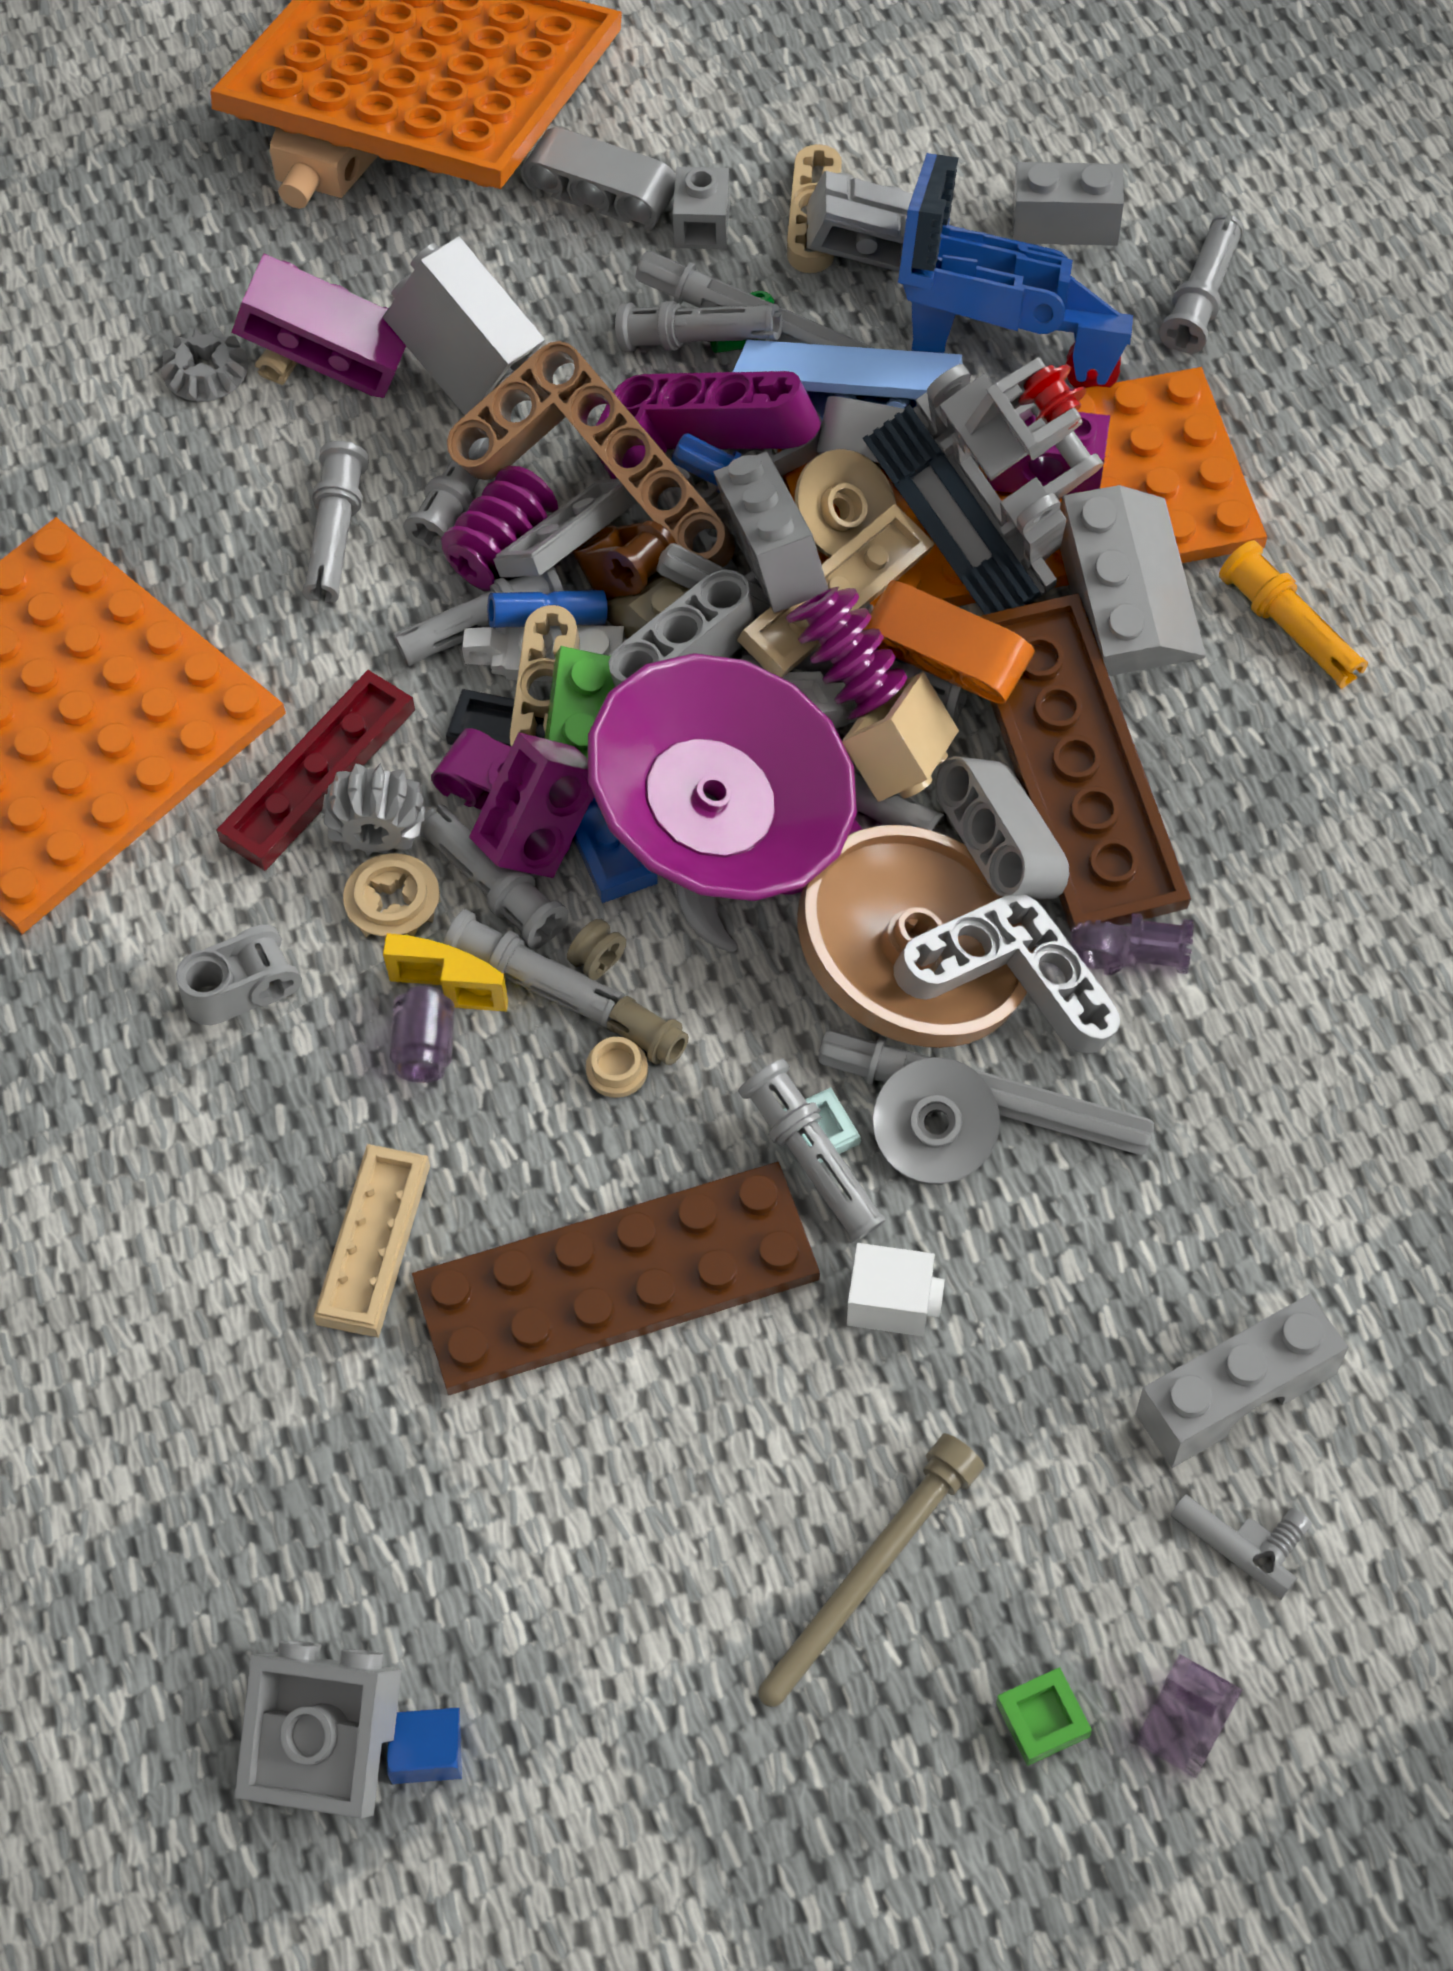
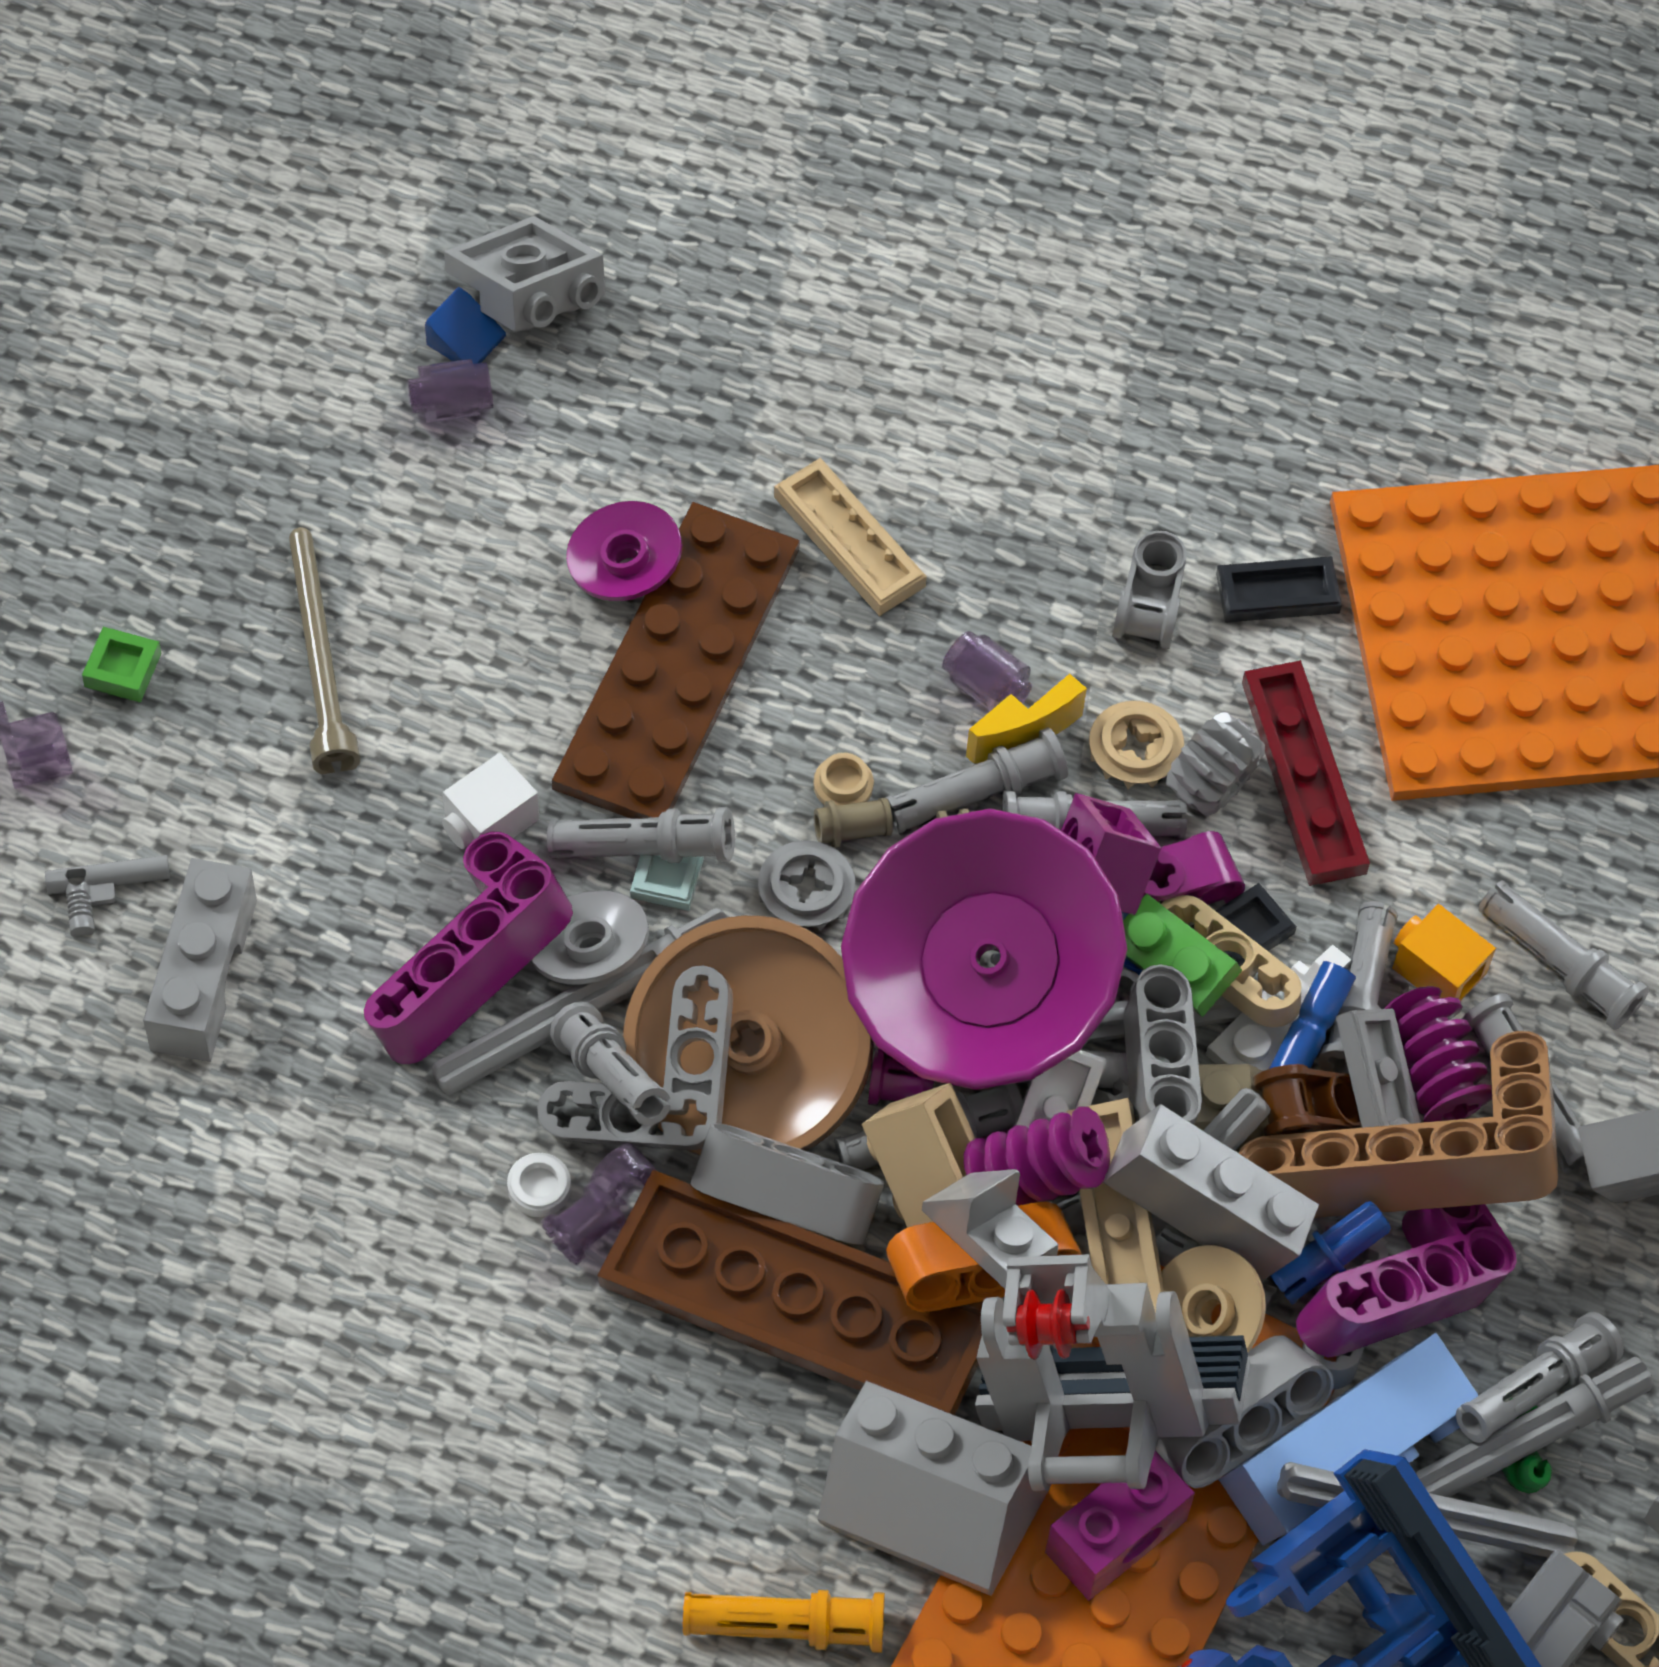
camera: 125 degrees right, 0 degrees up
(148, 906) = (1278, 589): none -> black tile
(407, 579) = (1442, 953): none -> light orange brick
(506, 1688) = (450, 390): none -> clear purple brick
(559, 1359) = (619, 533): none -> magenta dish
(743, 999) = (790, 865): none -> light grey gear
(863, 312) = (1467, 1519): none -> light grey axle
(935, 624) = (987, 1223): none -> light grey slope
(1030, 1019) = (602, 1054): none -> light grey pin
(1043, 1189) = (474, 953): none -> magenta beam
(1156, 1006) = (539, 1184): none -> white tile

